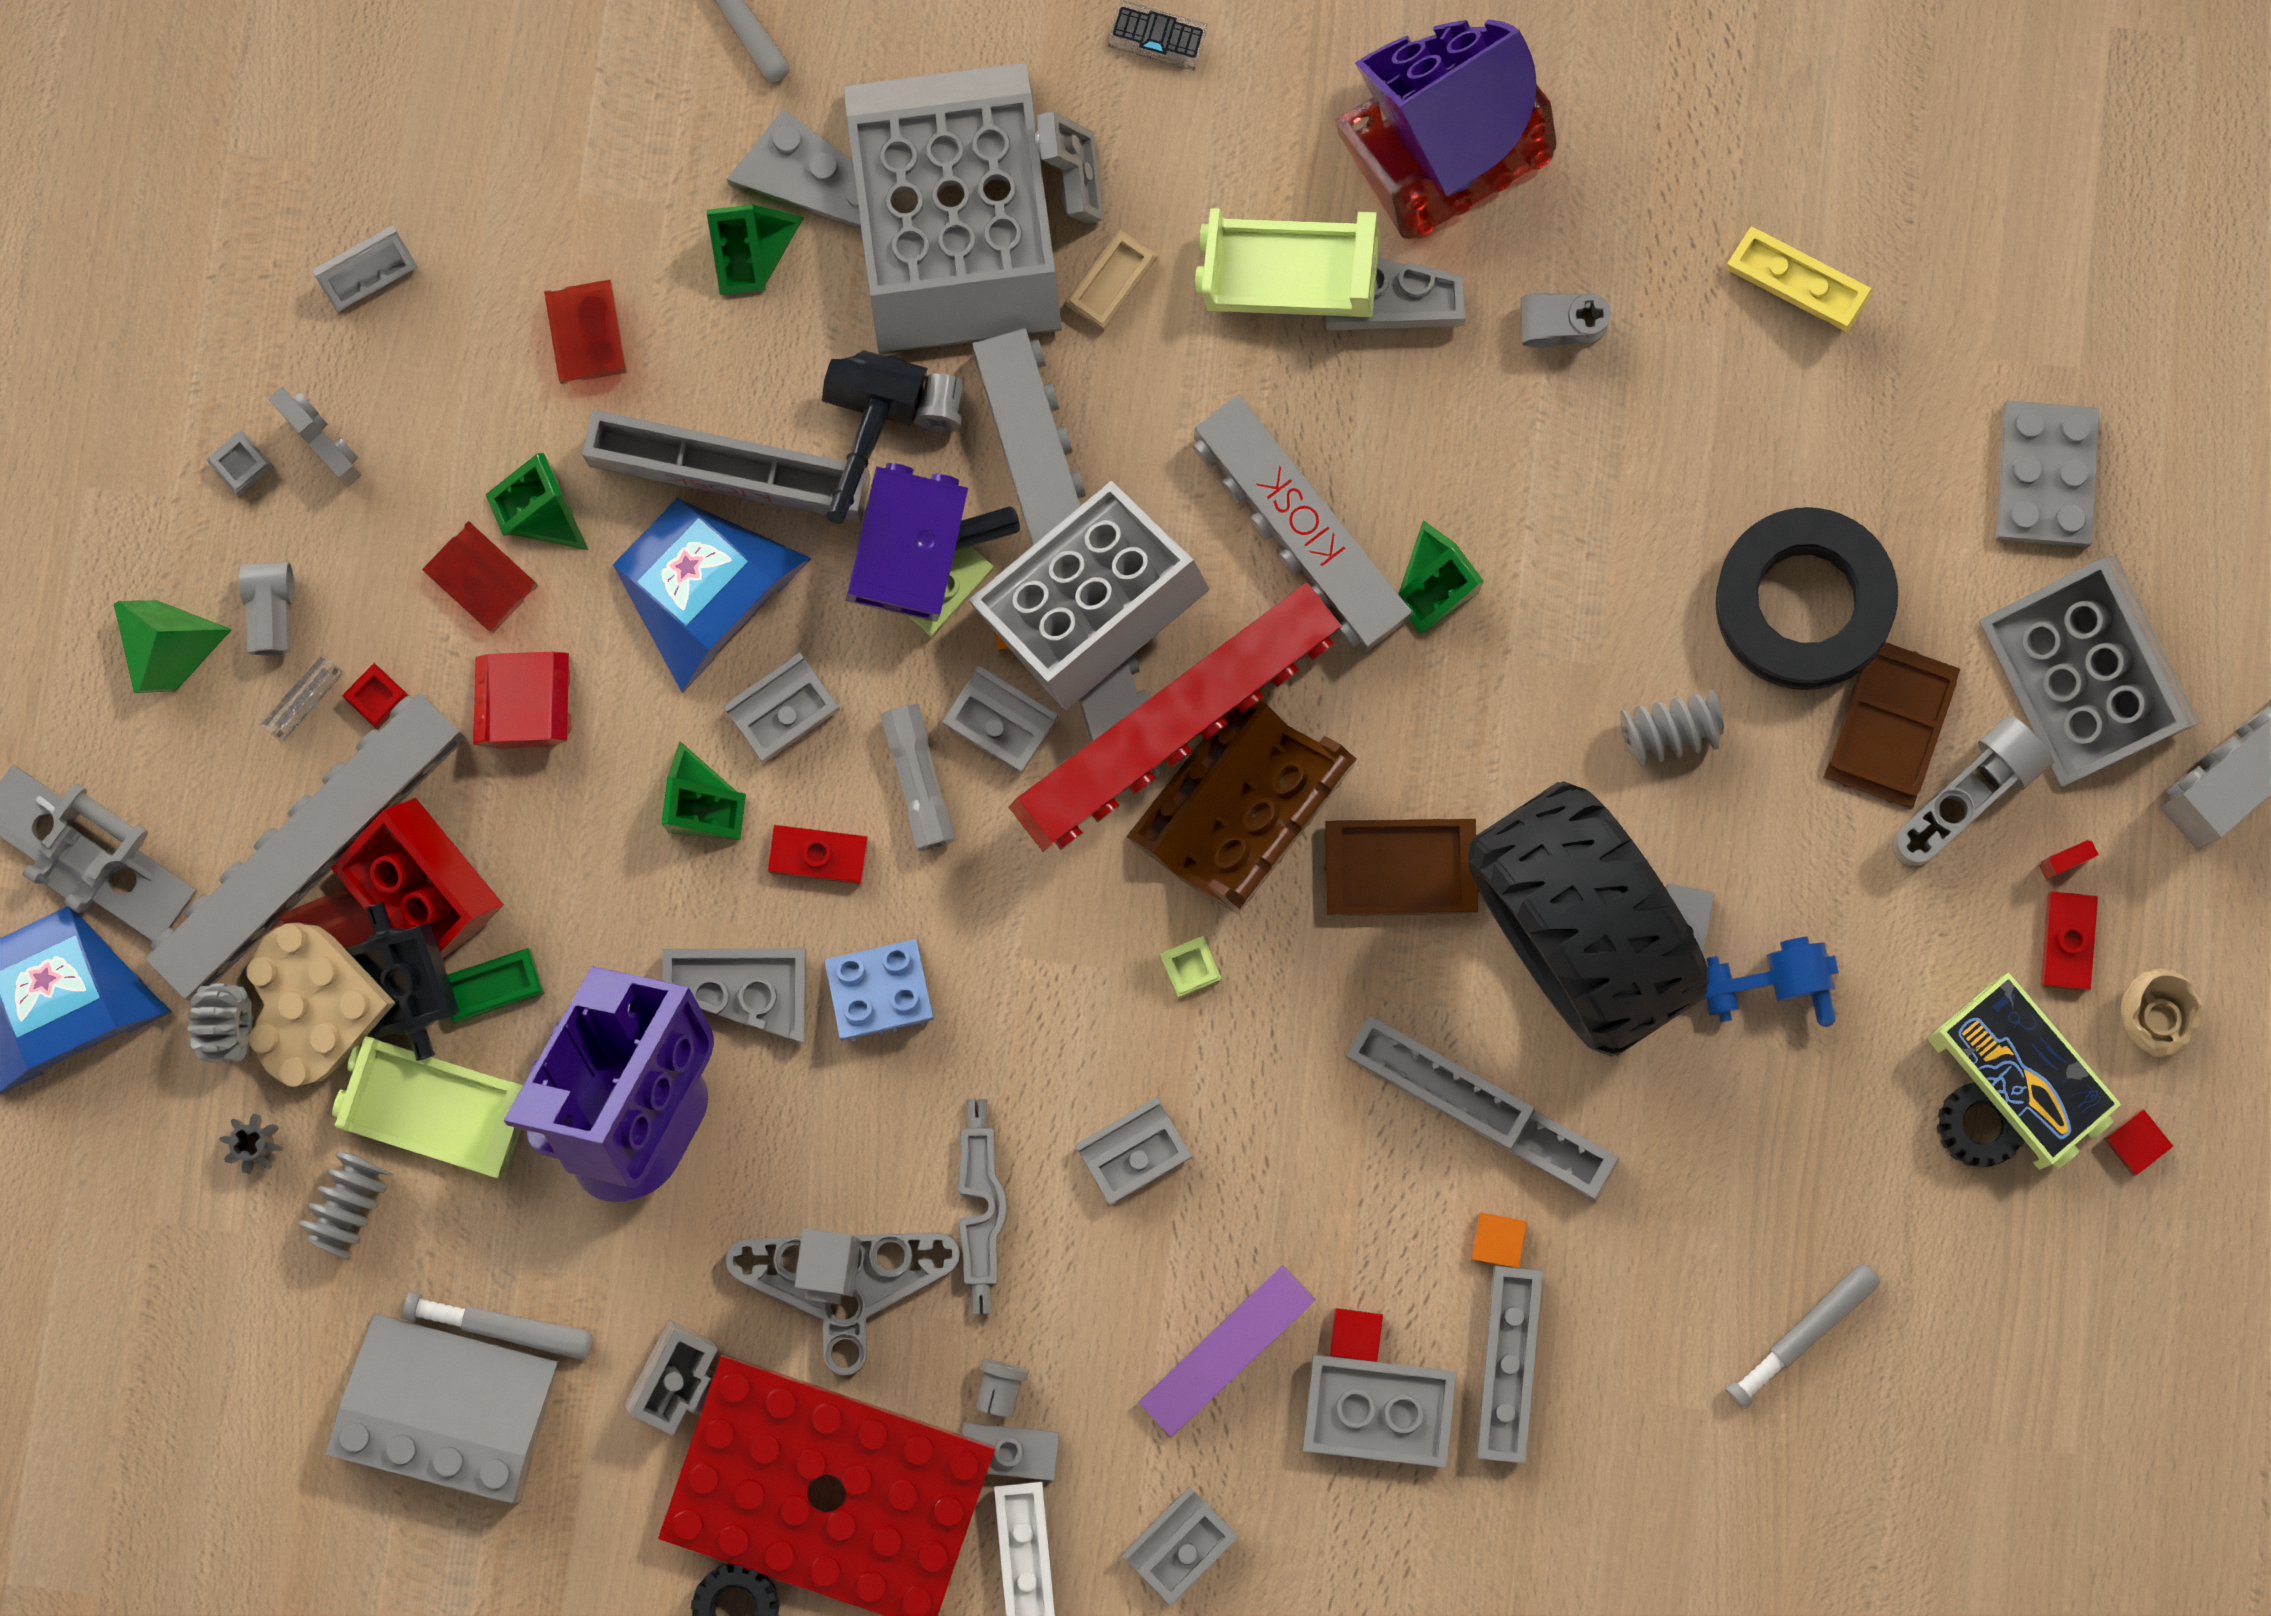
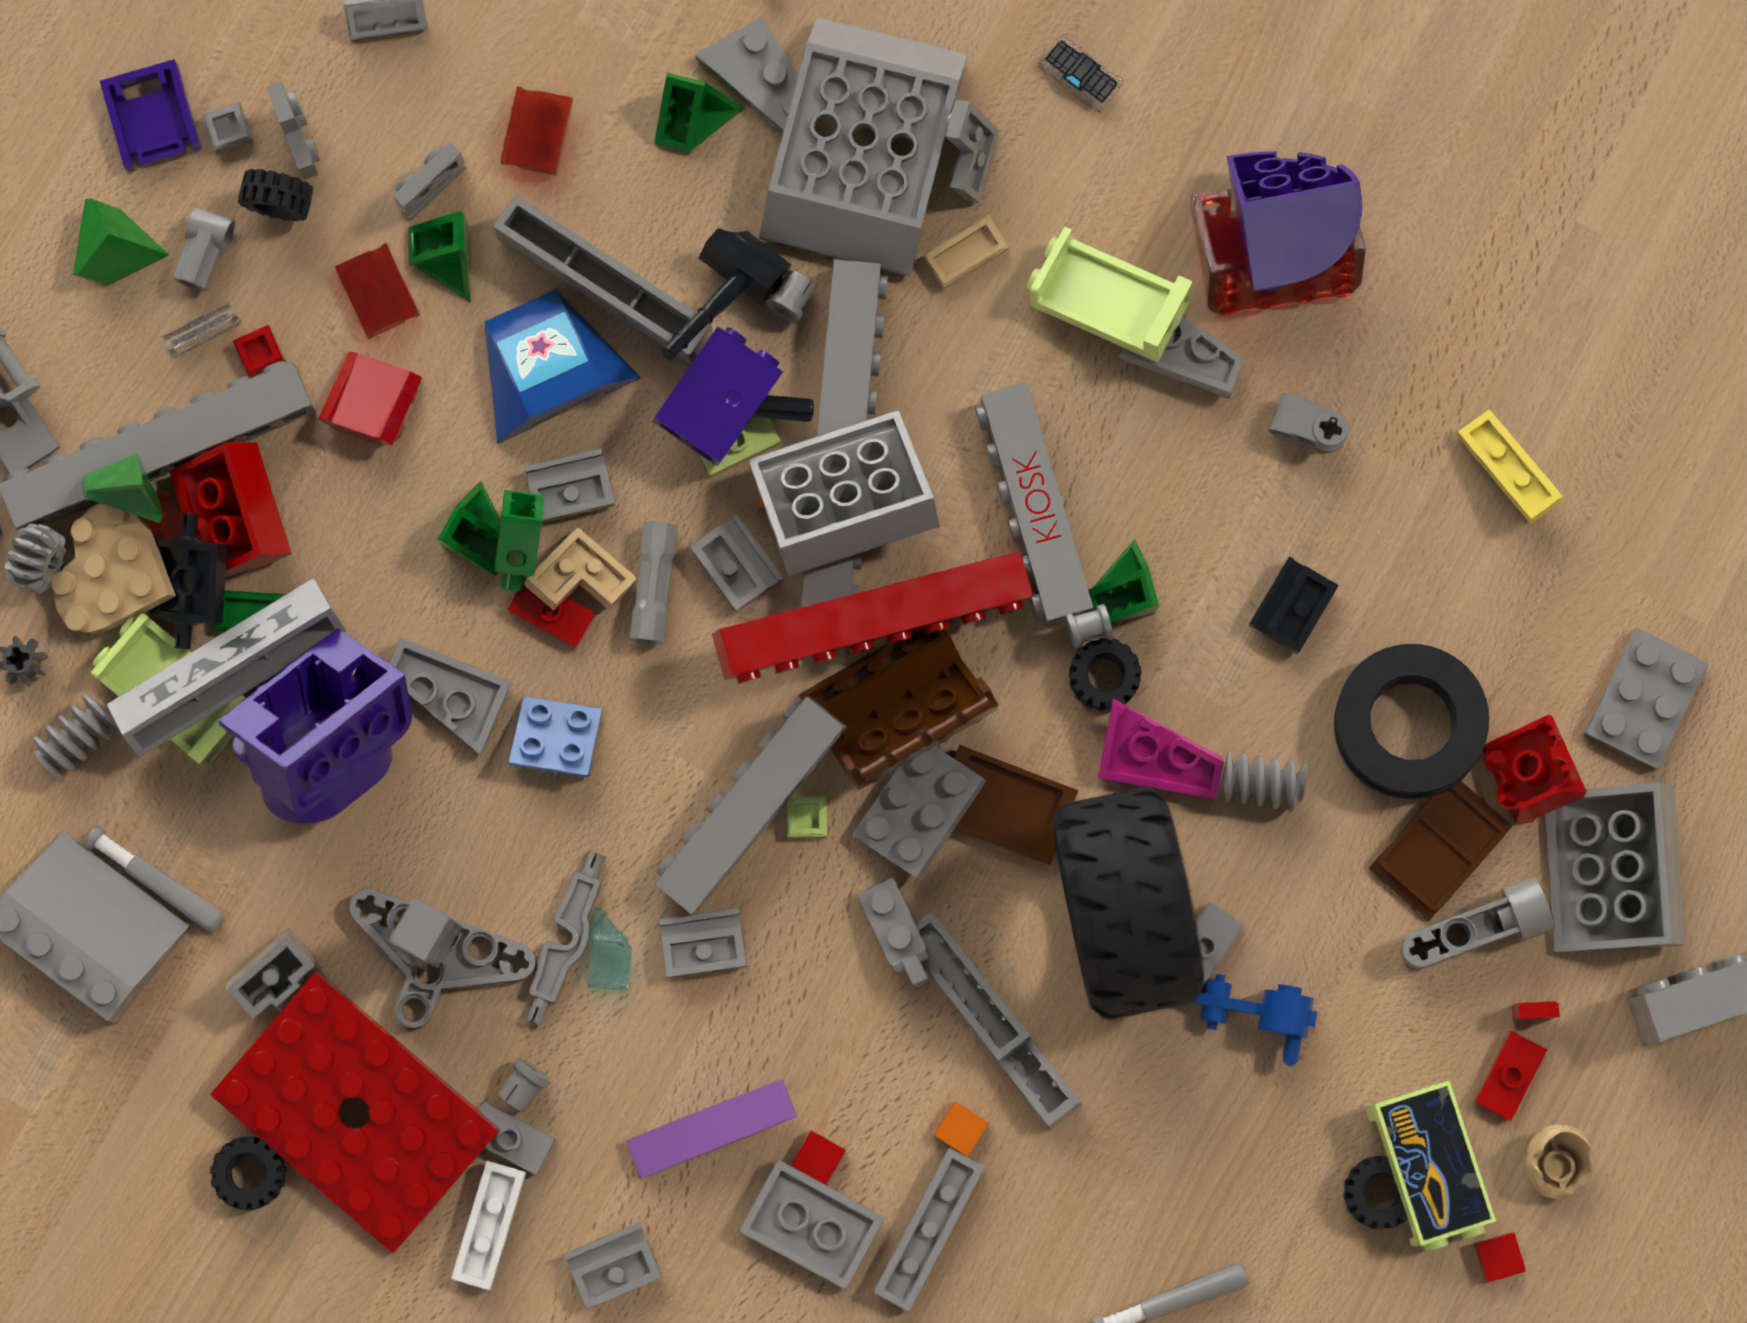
camera: 20 degrees right, 0 degrees up
(155, 490) = (152, 123): none -> dark purple container
(289, 905) = (125, 488): none -> green slope
(325, 515) = (275, 195): none -> black tyre
(481, 449) = (439, 171): none -> light grey plate
(482, 1061) = (224, 668): none -> light grey brick
(750, 786) = (518, 538): none -> green torso
(828, 788) = (580, 563): none -> tan plate
(1035, 1206) = (609, 955): none -> clear light blue slope
(1125, 977) = (750, 804): none -> light grey brick
(1311, 910) = (919, 810): none -> light grey plate
(1339, 1051) = (896, 930): none -> light grey hinge
(1416, 634) = (1089, 626): none -> light grey bush
(1460, 652) = (1111, 650): none -> black tyre
(1545, 747) = (1155, 756): none -> dark pink wing
(1626, 523) = (1293, 605): none -> black plate
(1960, 598) = (1533, 770): none -> red slope

